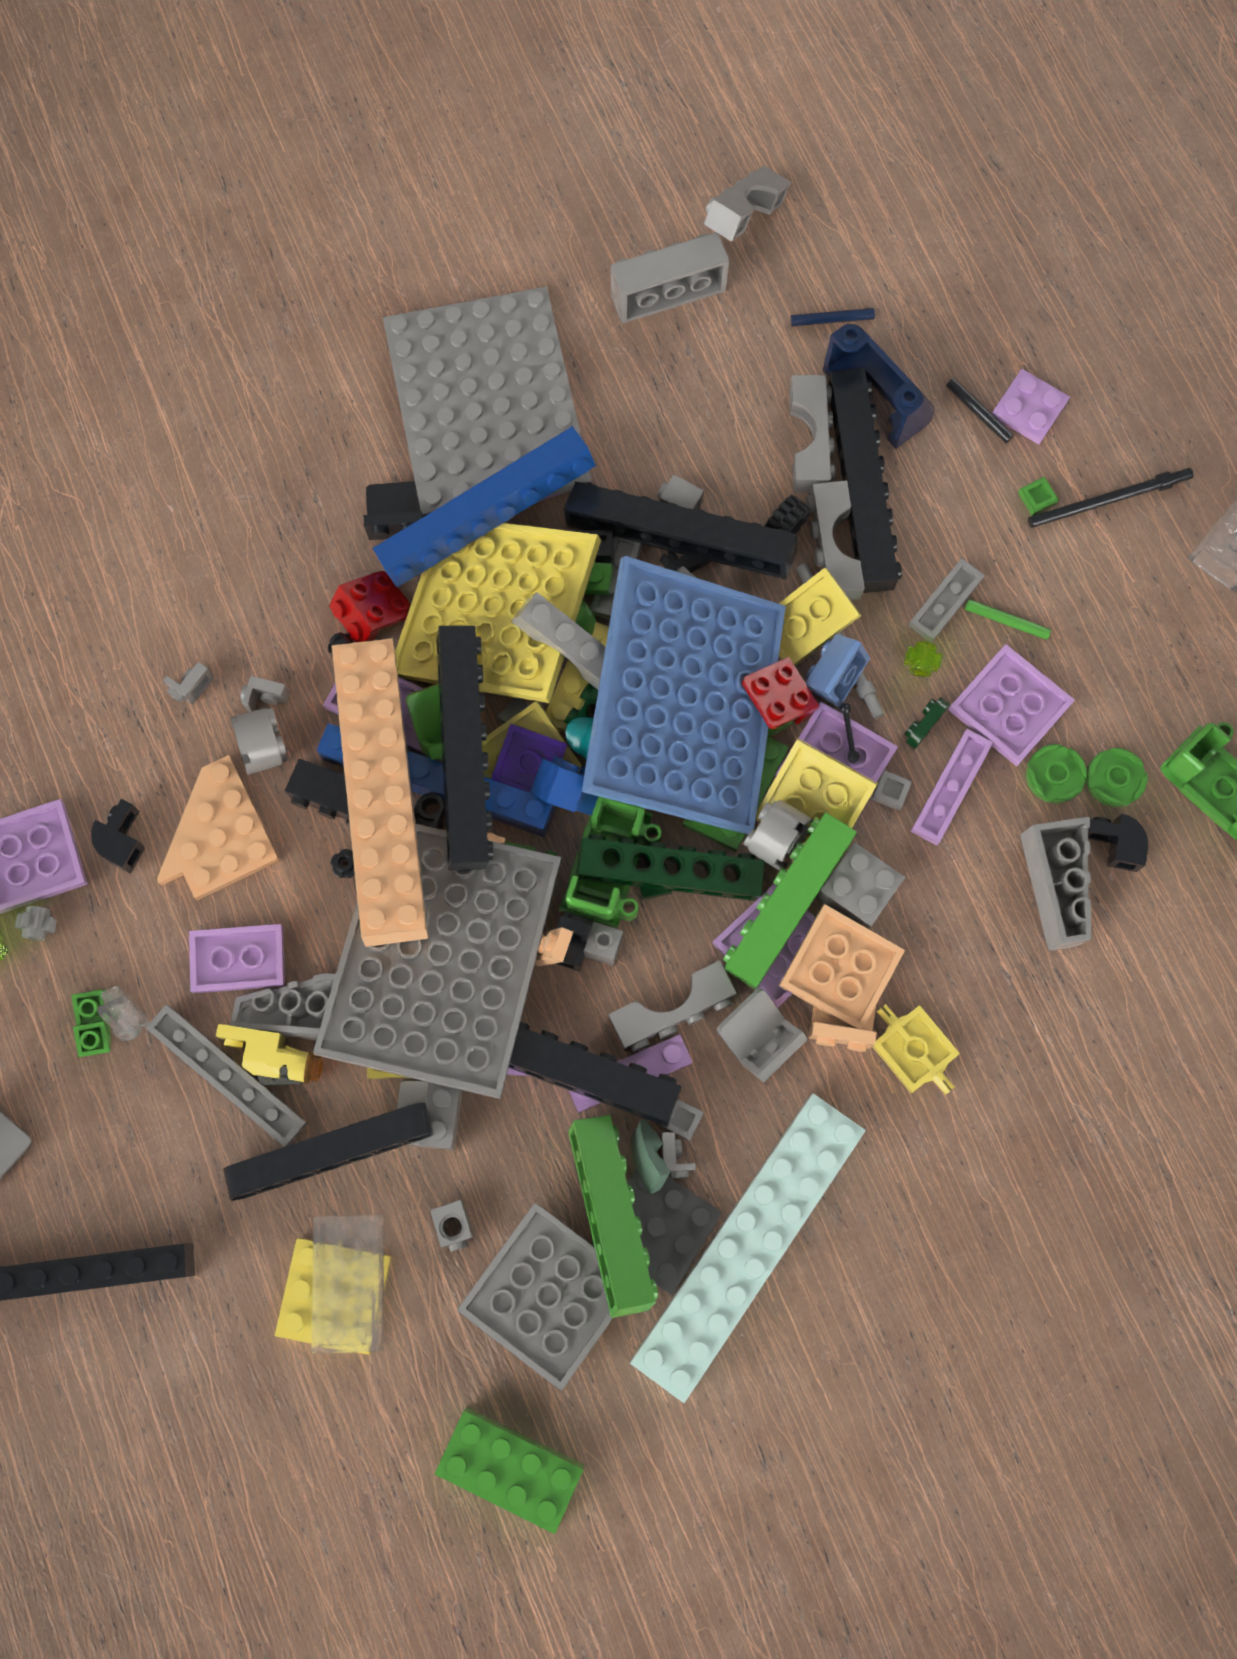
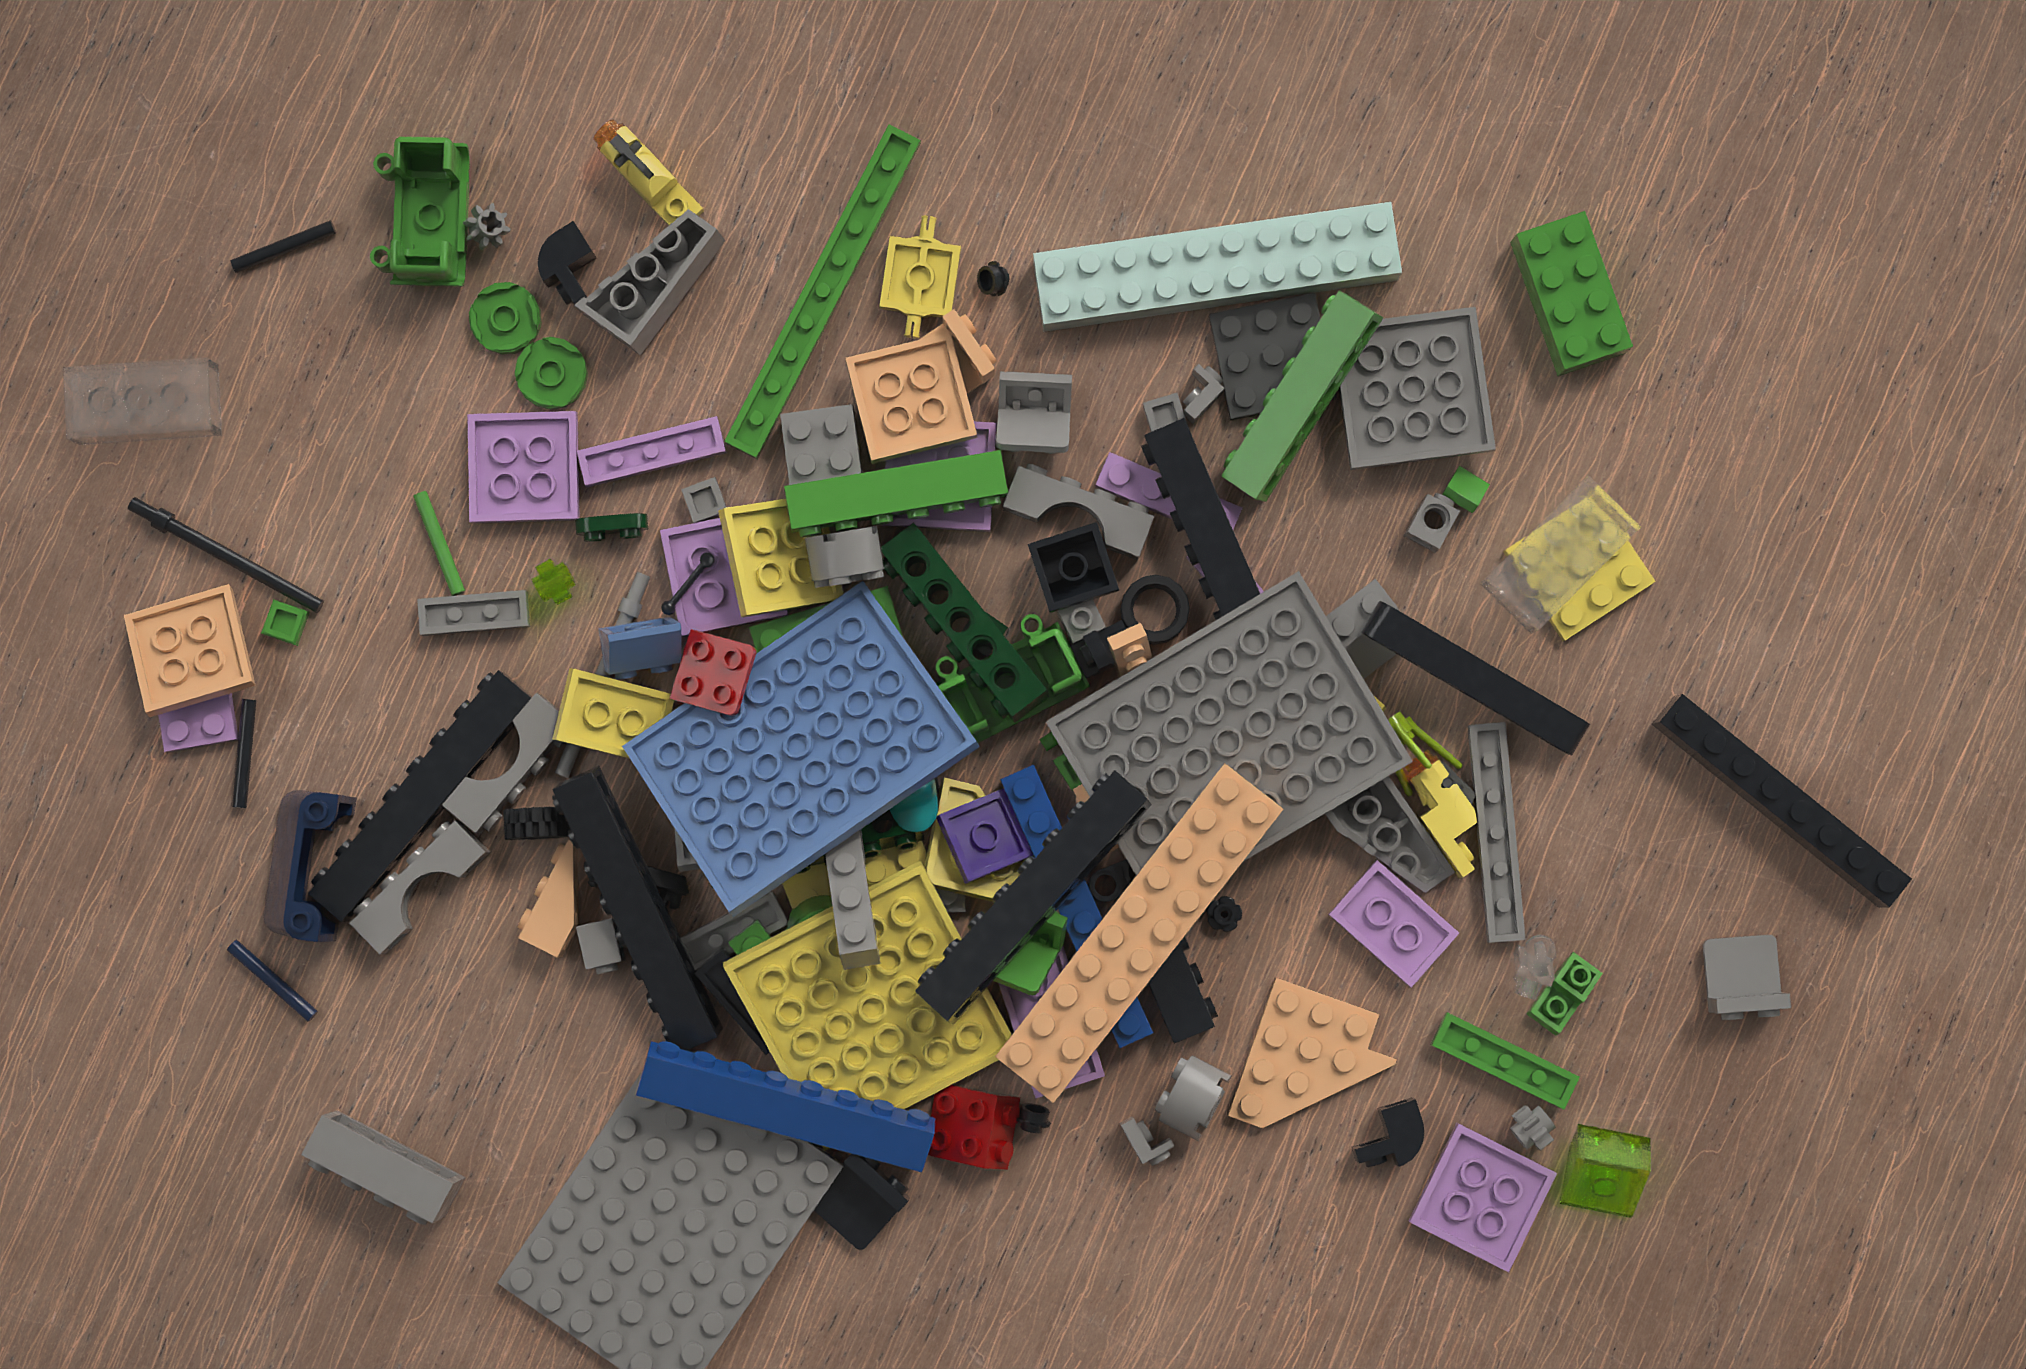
camera: 130 degrees left, 10 degrees up
(90, 946) = (1505, 1060): none -> bright green plate
(192, 685) = (1193, 1215): light grey bracket -> none
(345, 1074) = (1403, 728): none -> lime plant
(452, 1268) = (1466, 489): none -> bright green tile
(561, 785) = (983, 780): blue brick -> none
(563, 973) = (1169, 586): none -> black tyre
(639, 966) = (1073, 567): none -> black slope
(644, 1150) = (1219, 424): sand green slope -> none
(723, 490) = (557, 908): none -> light nougat slope
(733, 208) = (264, 1159): light grey arch -> none
(872, 1093) = (993, 279): none -> black plate
(962, 984) = (822, 291): none -> bright green plate
(1070, 426) = (189, 650): none -> light nougat plate
(1138, 939) = (644, 172): none -> light yellow plate
(1185, 822) = (478, 230): none -> light grey gear

